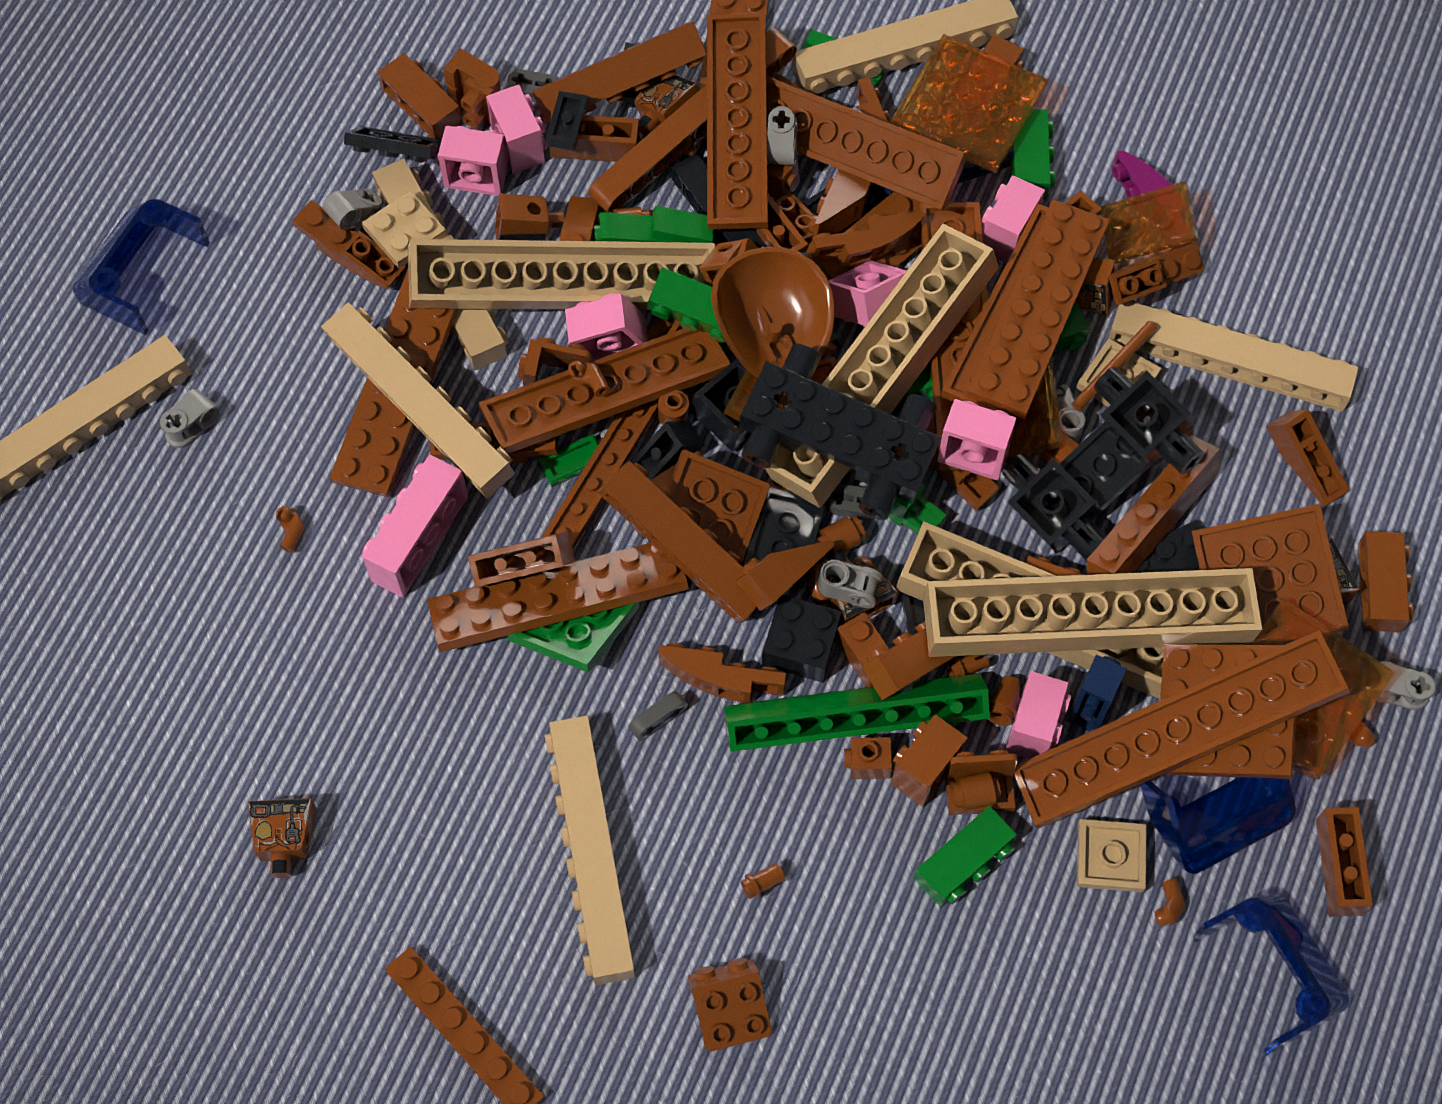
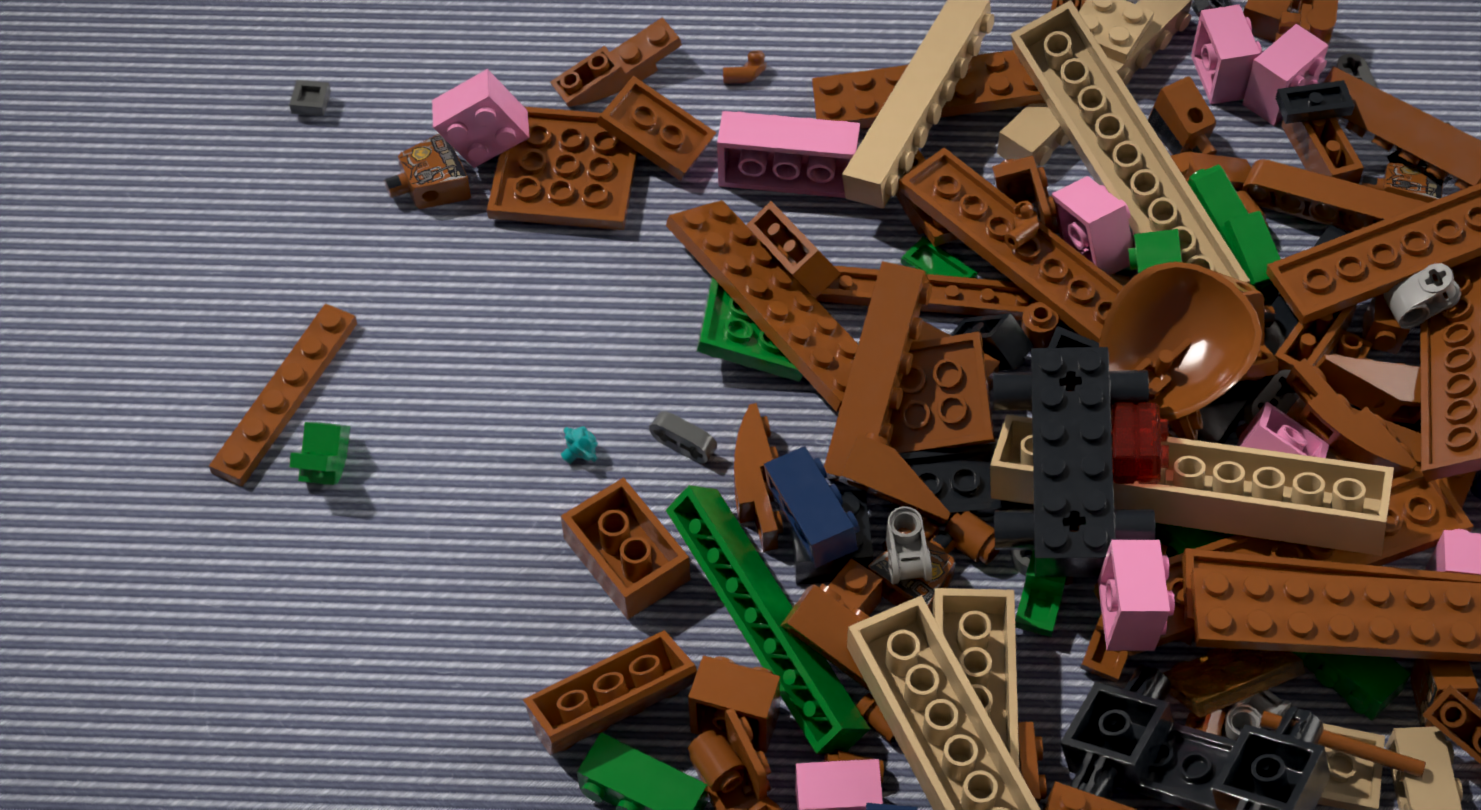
camera: 70 degrees right, 10 degrees down
(132, 914) = (310, 98): none -> dark grey plate
(236, 630) = (609, 71): none -> dark orange slope
(258, 763) = (480, 118): none -> bright pink brick
(328, 714) = (564, 173): none -> dark orange plate
(330, 622) = (656, 128): none -> dark orange plate
(550, 1014) = (322, 453): none -> green brick
(591, 851) = (510, 428): tan brick -> none
(630, 799) = (580, 444): none -> teal plant
(730, 1004) = (389, 608): dark orange bracket -> none
(752, 795) = (625, 548): none -> dark orange brick
(763, 880) = (538, 596): dark orange pin -> none
(790, 635) = (812, 506): none -> dark blue brick
(851, 377) = (1137, 443): none -> clear red brick
(869, 758) = (719, 639): dark orange brick -> none
(887, 849) = (609, 692): none -> dark orange slope

